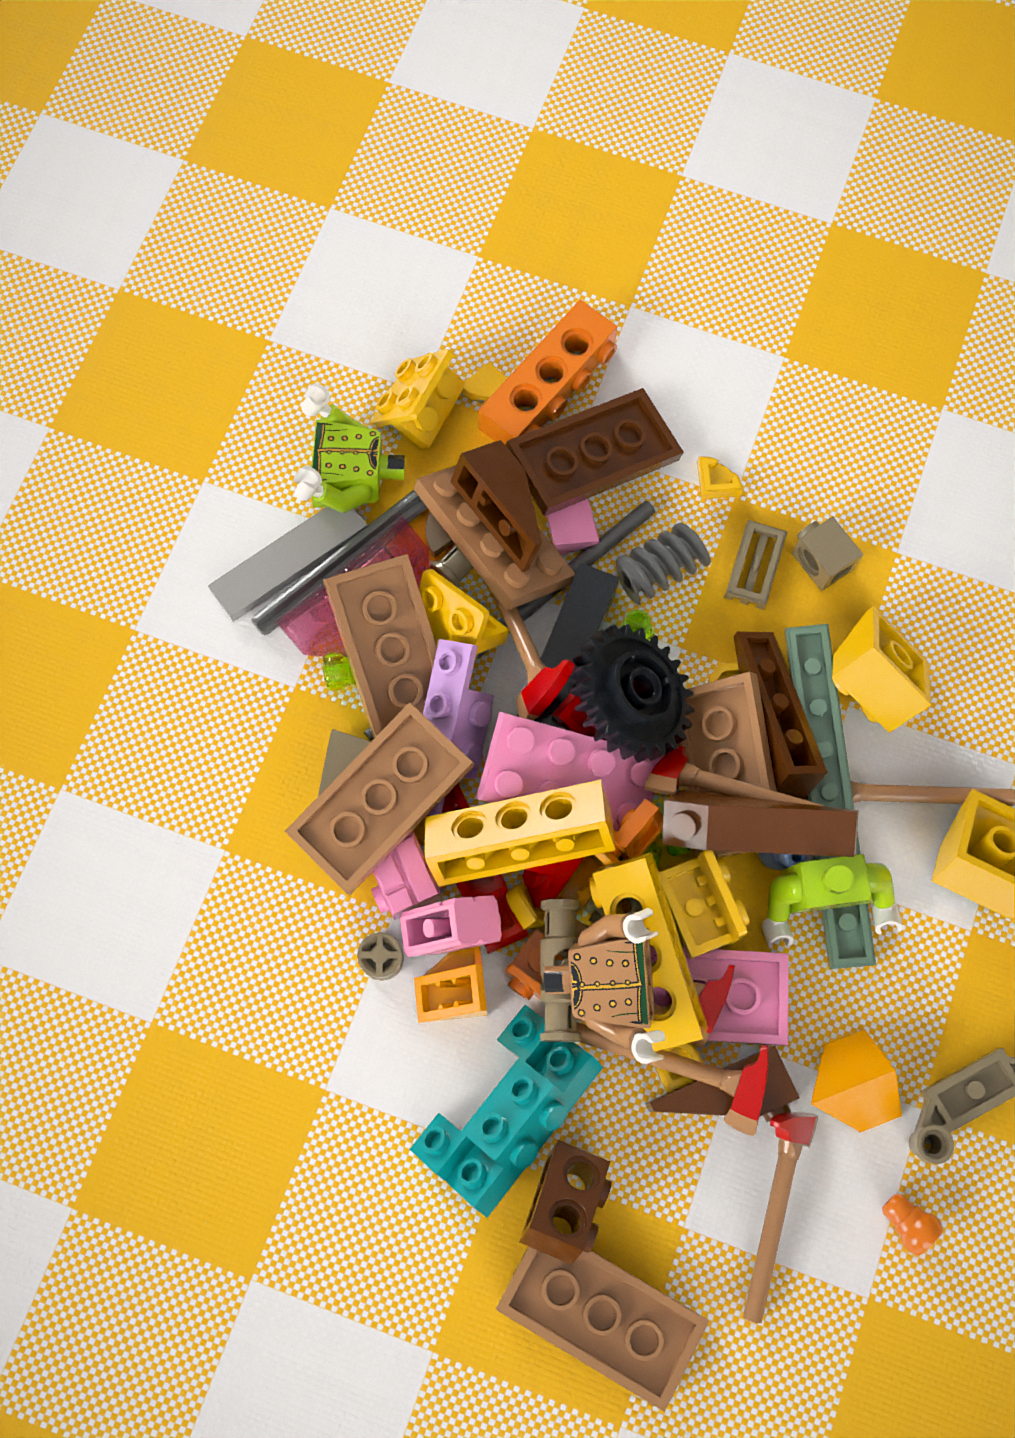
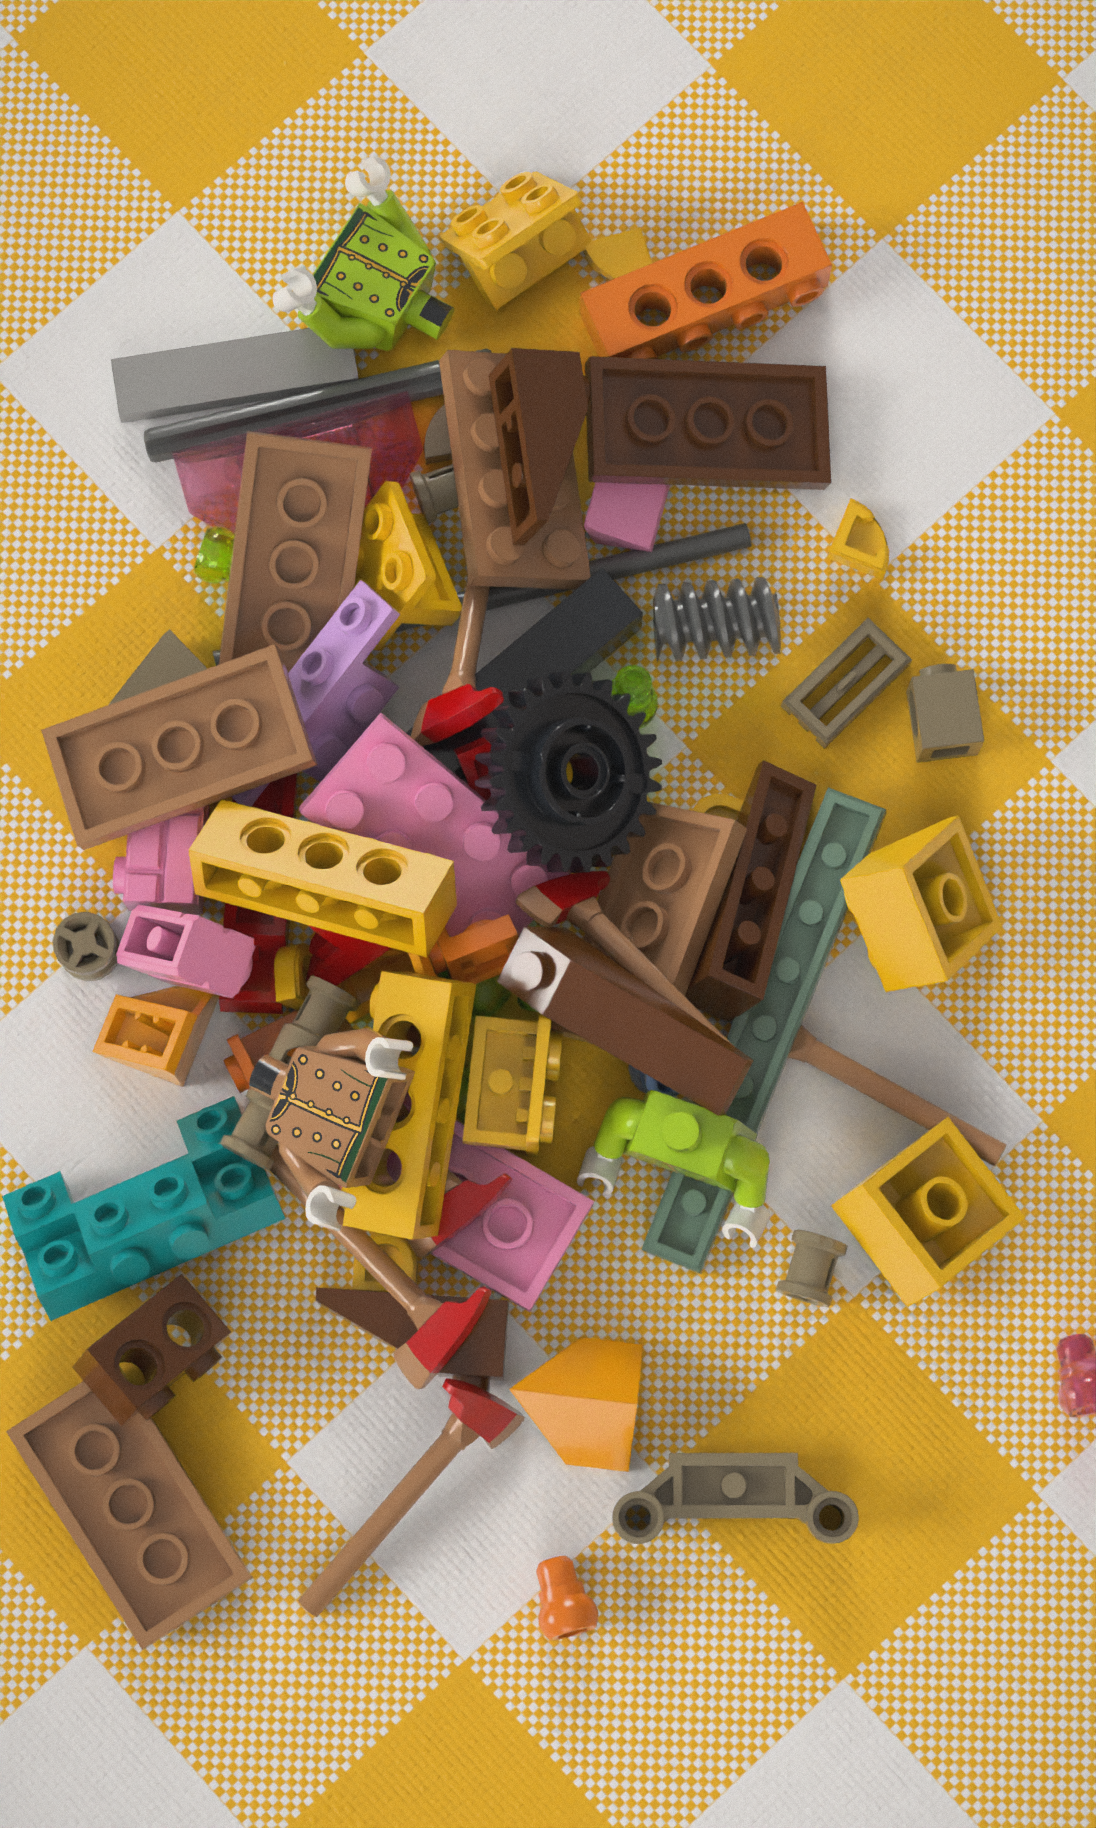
camera: 30 degrees right, 5 degrees up
(941, 925) = (811, 1268): none -> dark tan bush

